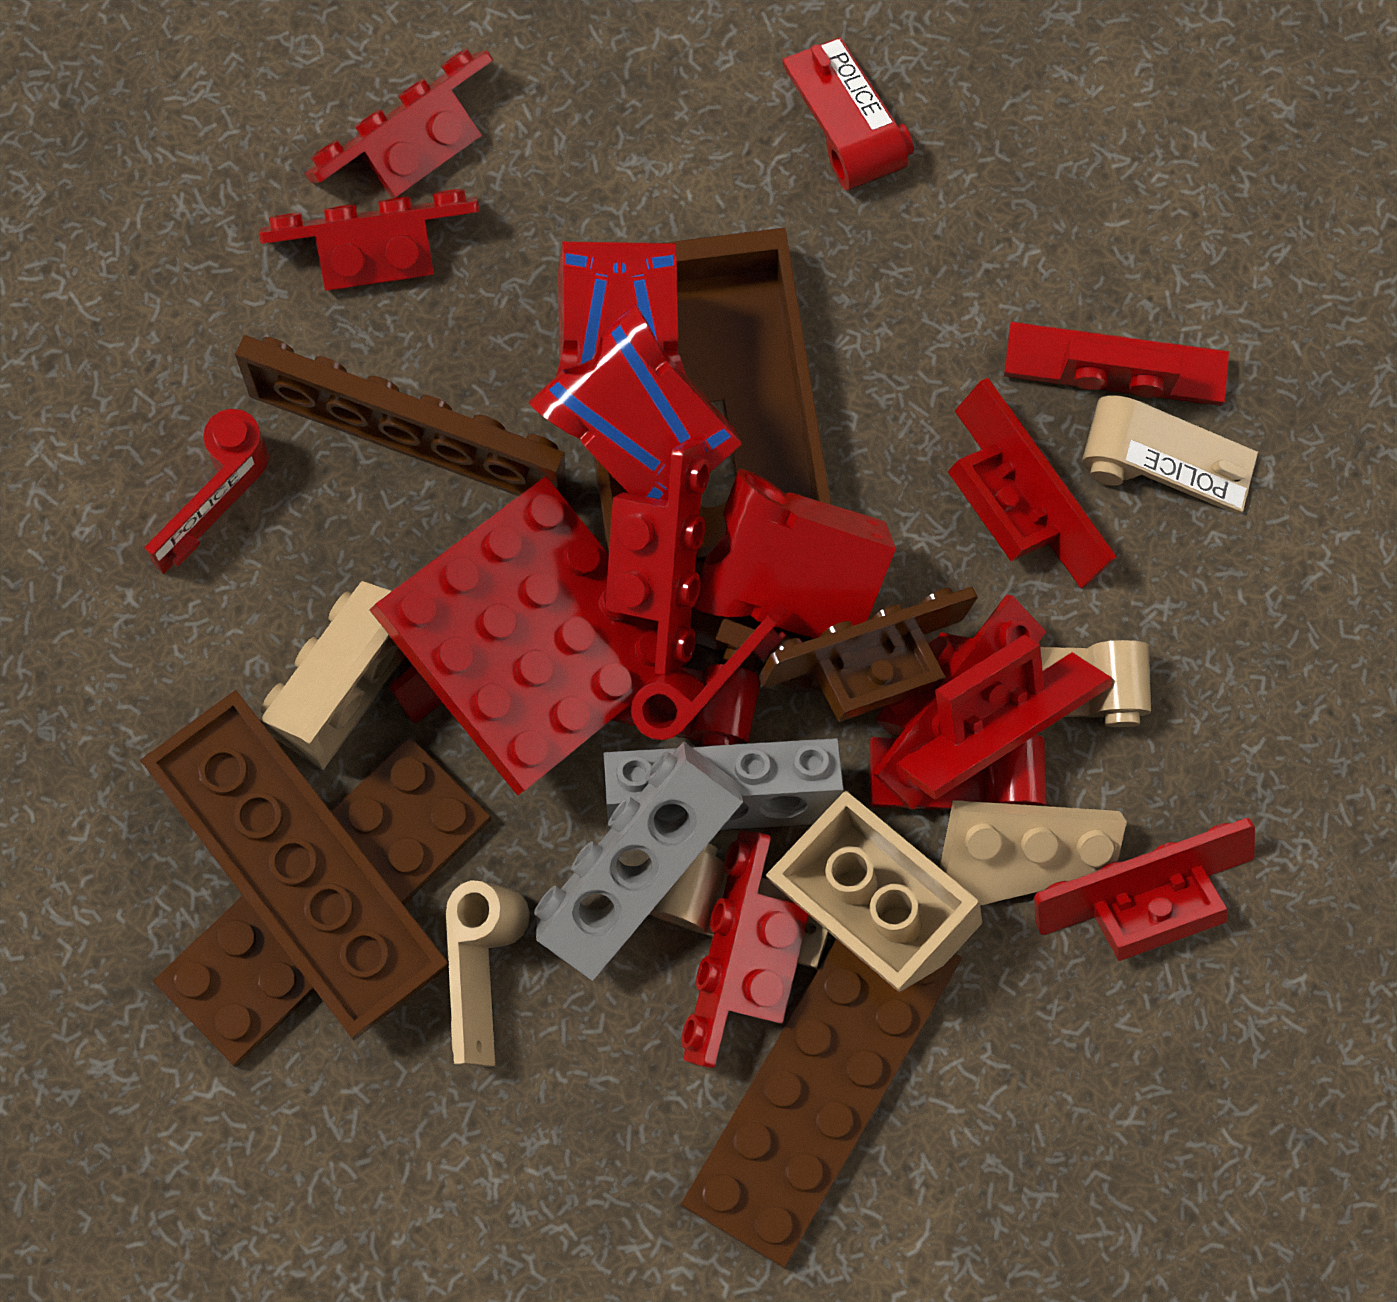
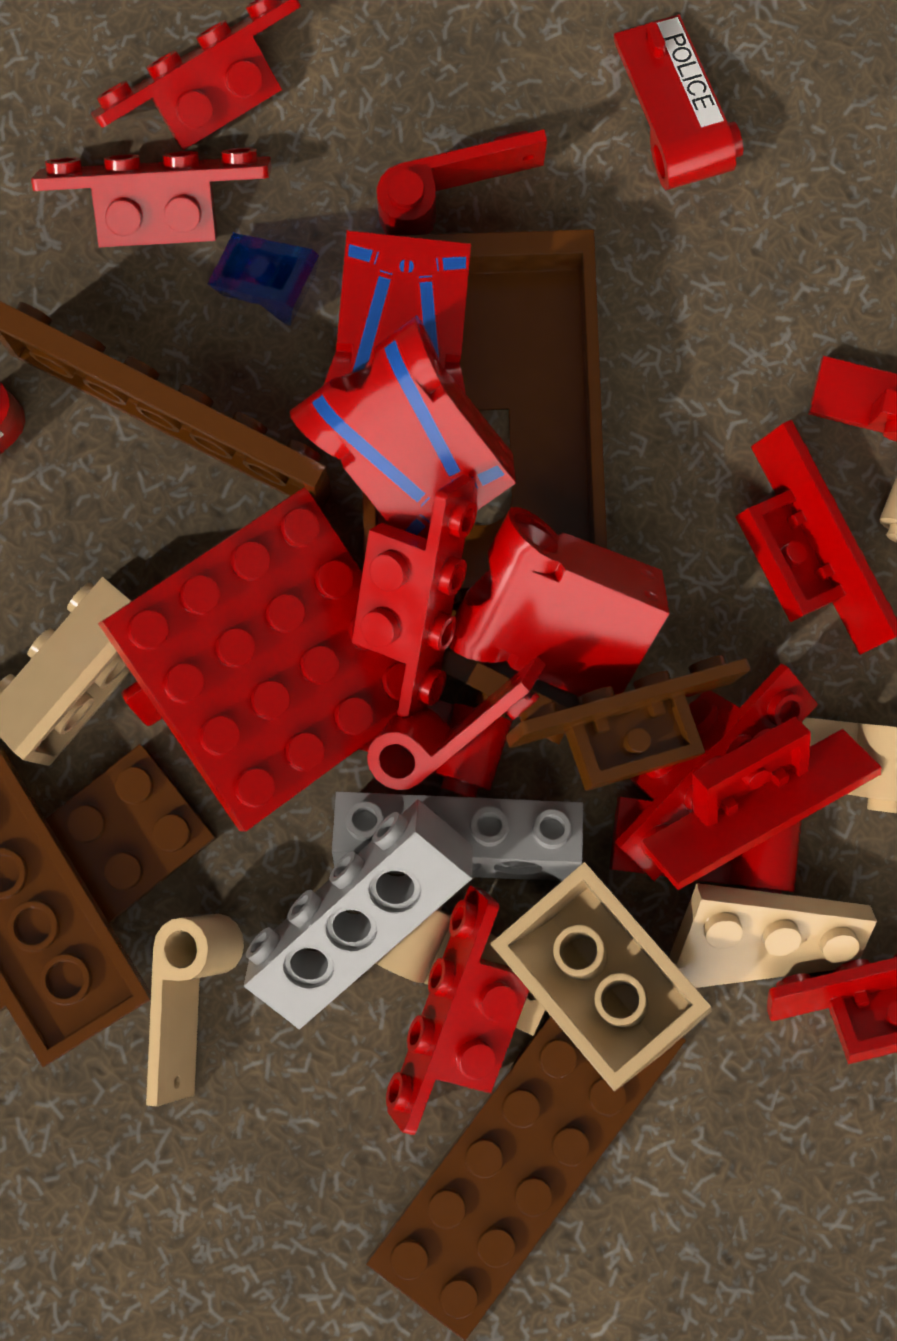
camera: 10 degrees right, 10 degrees up
(485, 297) = (265, 274): none -> clear blue slope
(612, 208) = (409, 189): none -> red door

